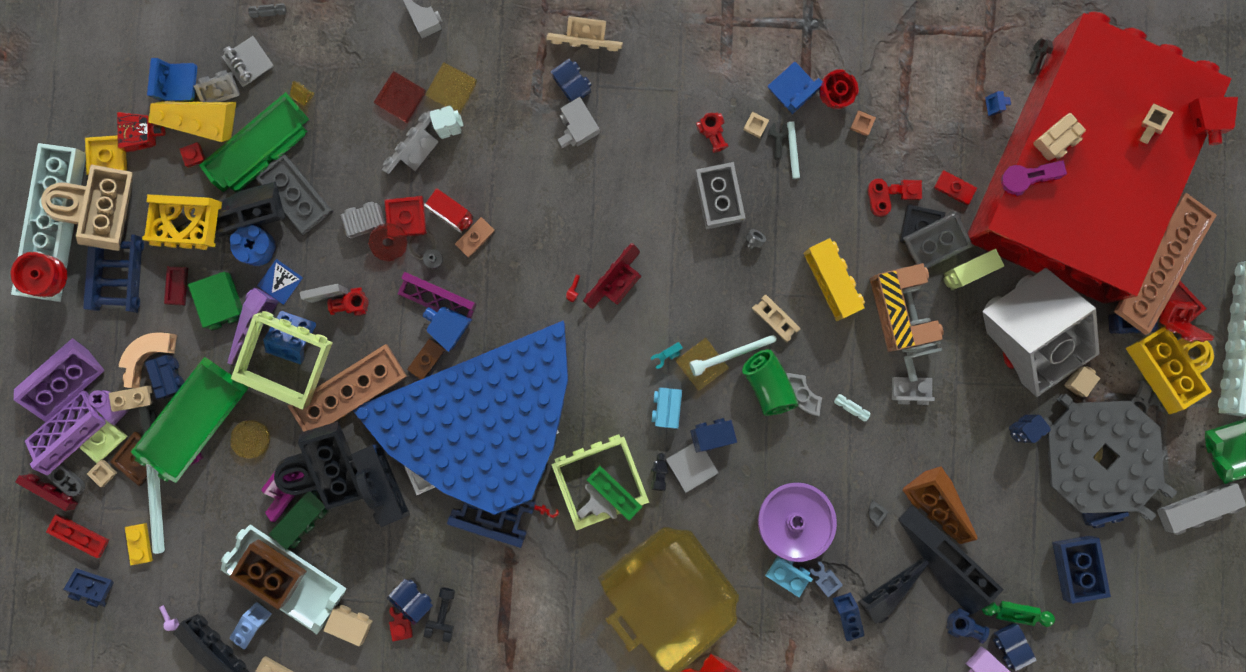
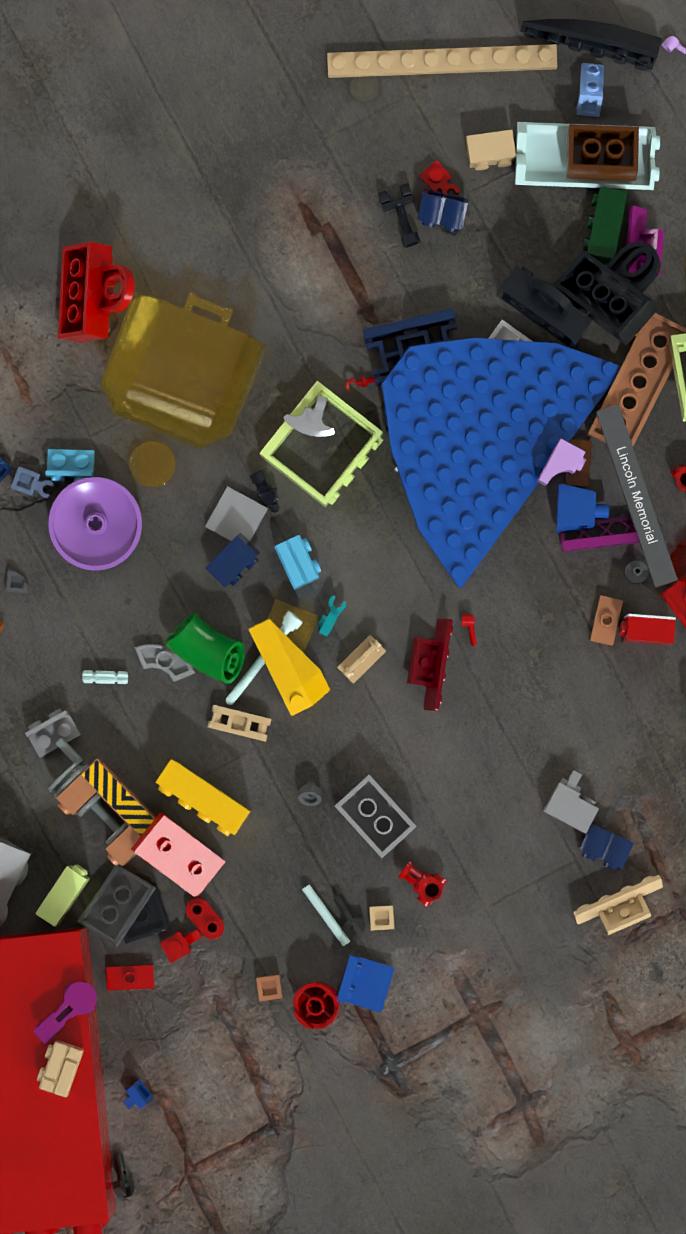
camera: 145 degrees right, 0 degrees up
(398, 310) = (636, 496): none -> dark grey tile
(434, 367) = (563, 459): none -> lavender arch
(614, 493) = (300, 440): green plate -> none
(663, 312) = (361, 659): none -> tan hinge
(718, 331) = (292, 671): none -> yellow wedge
(729, 541) = (152, 464): none -> clear yellow tile
(876, 249) = (178, 855): none -> plate

